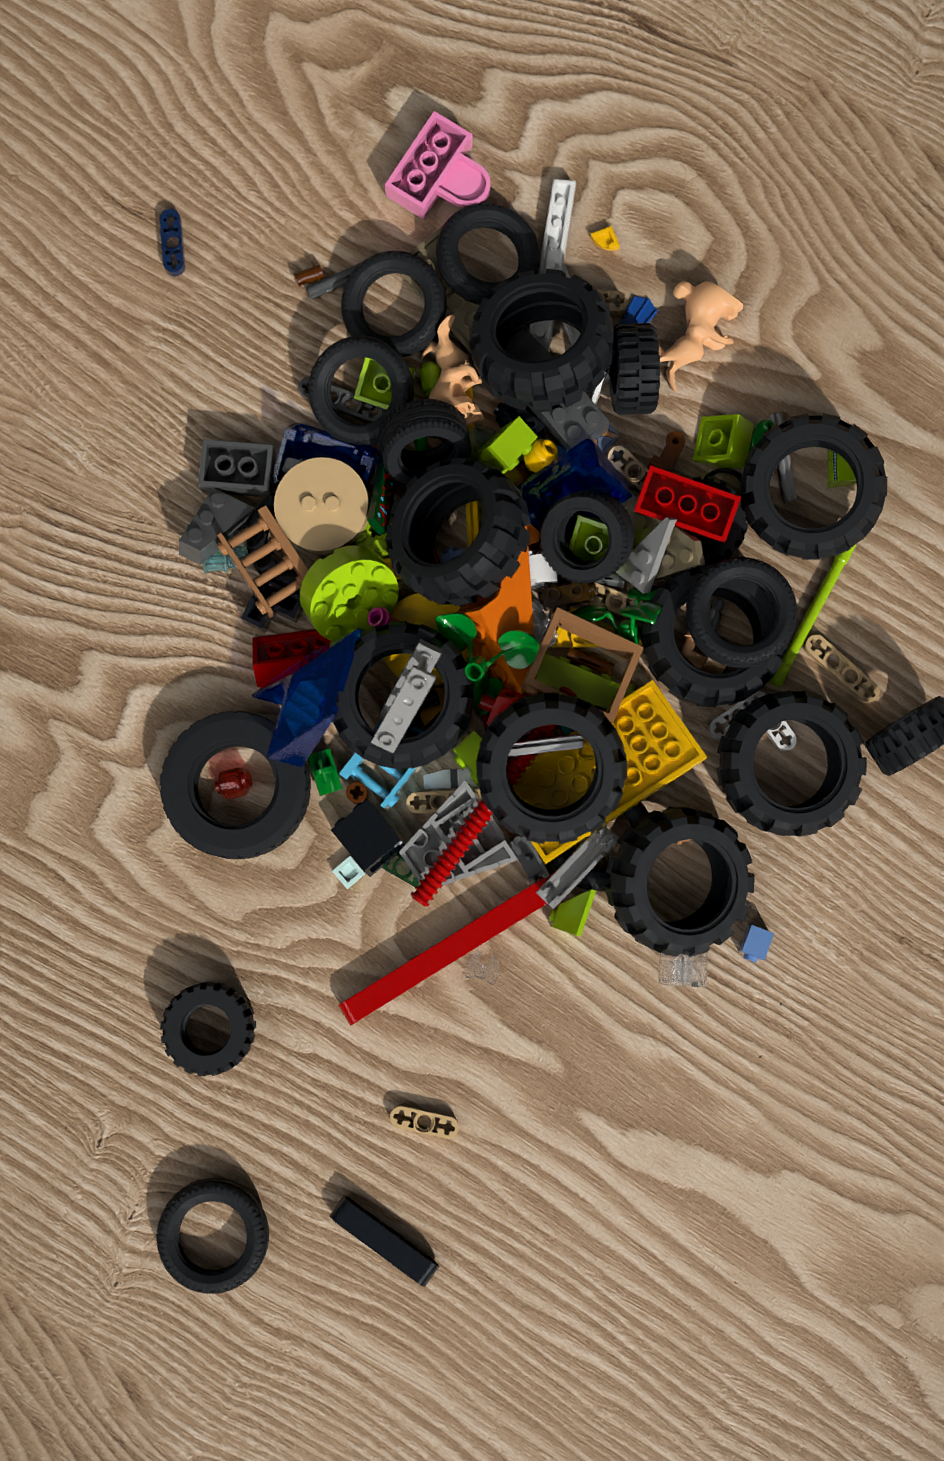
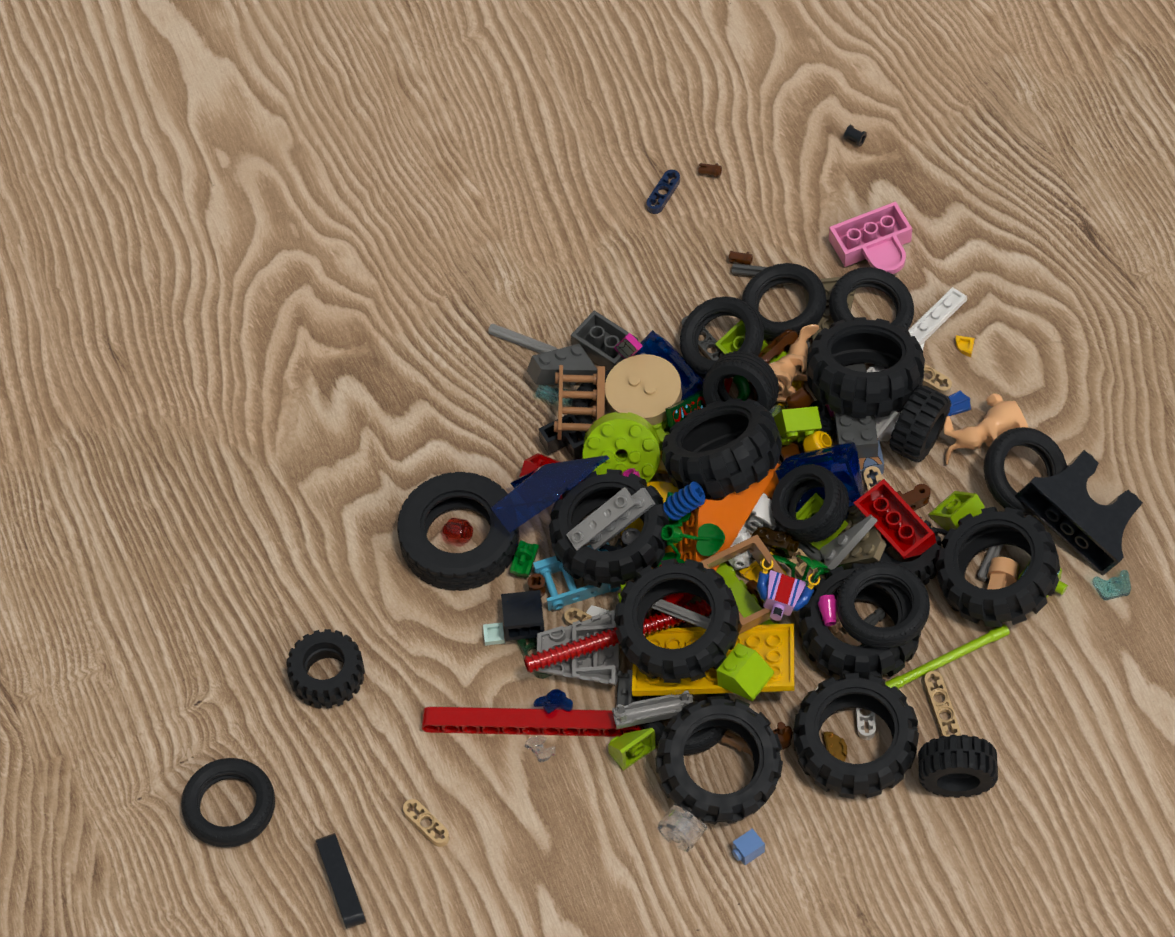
camera: 40 degrees right, 25 degrees down
(145, 516) = (520, 339): none -> light grey axle
(205, 185) = (709, 169): none -> reddish brown pin
(275, 467) = (628, 346): none -> tile
(332, 50) = (855, 135): none -> black bush
(425, 365) = (777, 346): none -> reddish brown hinge
(466, 914) = (553, 700): none -> clear blue plate
(467, 624) = (684, 501): none -> blue piece
(490, 419) = (799, 399): none -> reddish brown piece
(631, 660) = (781, 592): none -> torso
(651, 775) = (744, 672): none -> lime slope
(687, 650) = (828, 609): none -> dark pink cone
(712, 803) = (785, 734): none -> reddish brown piece
(738, 363) = (995, 458): none -> black tyre
(770, 781) = (835, 745): none -> pearl gold tile
(810, 485) = (1002, 572): none -> light nougat piece
(866, 381) = (1076, 518): none -> black piece
(923, 430) = (1114, 587): none -> clear light blue piece

